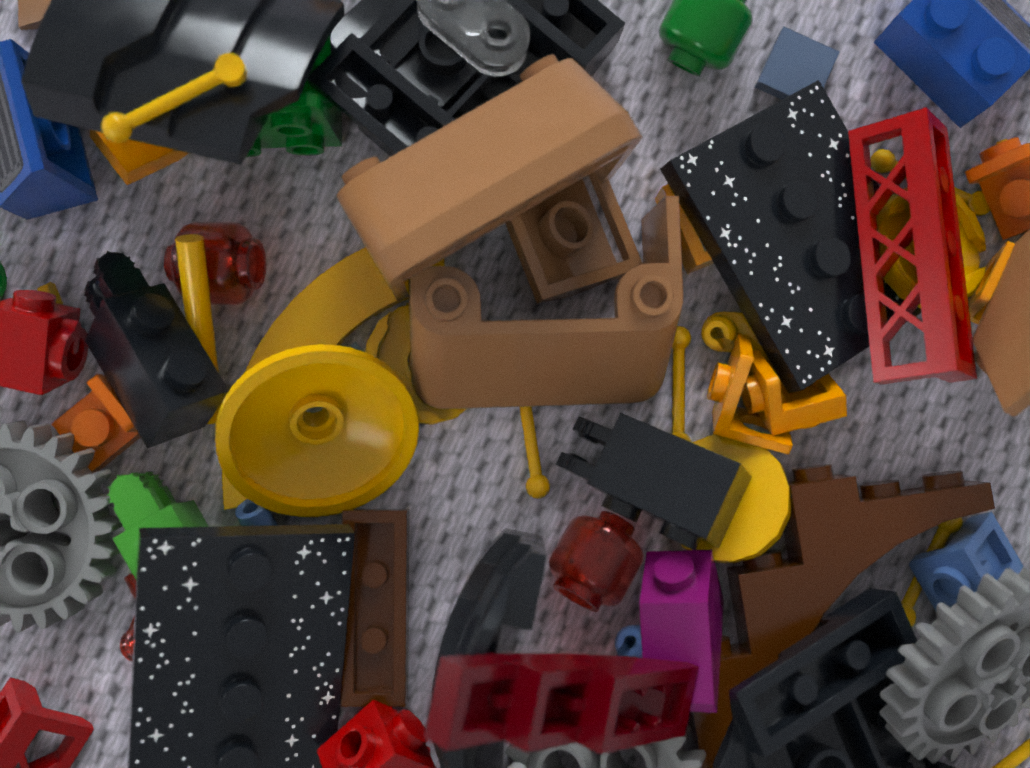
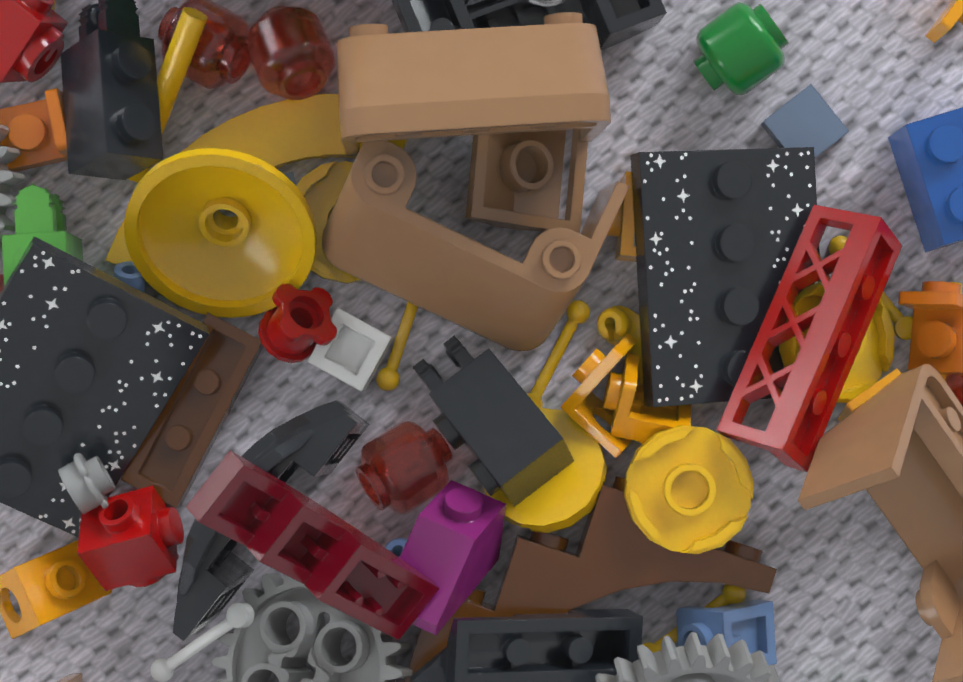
camera: 20 degrees right, 0 degrees up
(298, 233) = (290, 52): none -> clear red head
(310, 731) = (87, 482): none -> light grey plate
(430, 478) = (297, 323): none -> red brick
(491, 477) = (353, 352): none -> white plate
(875, 450) = (689, 489): none -> yellow tile

